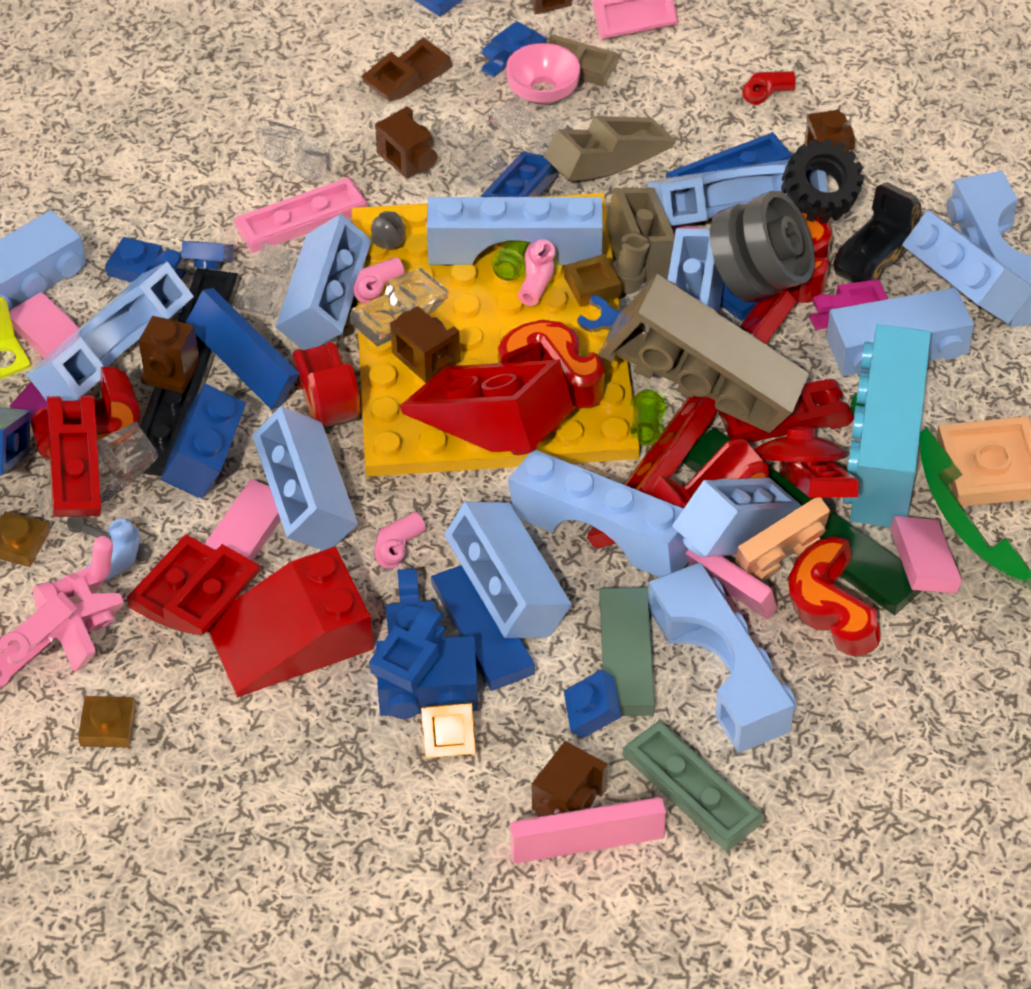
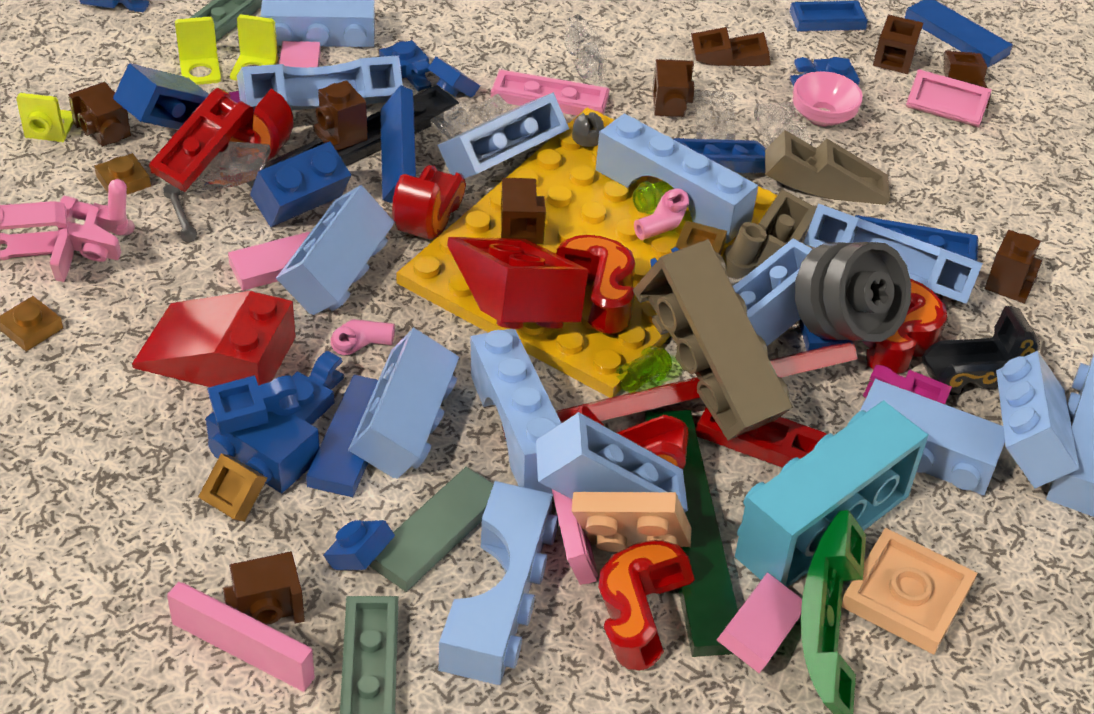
camera: 35 degrees right, 5 degrees down
(125, 546) = (167, 225): light blue arm -> none
(192, 586) = (187, 272): red slope -> none
(373, 278) = (535, 153): bright pink arm -> none
(401, 295) = (554, 177): clear slope -> none
(594, 62) = (877, 113): dark tan tile -> none
(764, 84) = (1005, 200): red arm -> none
(801, 447) = (734, 464): red dish -> none
(820, 479) = (706, 487): red tile -> none
(827, 159) = (967, 254): black tyre -> none

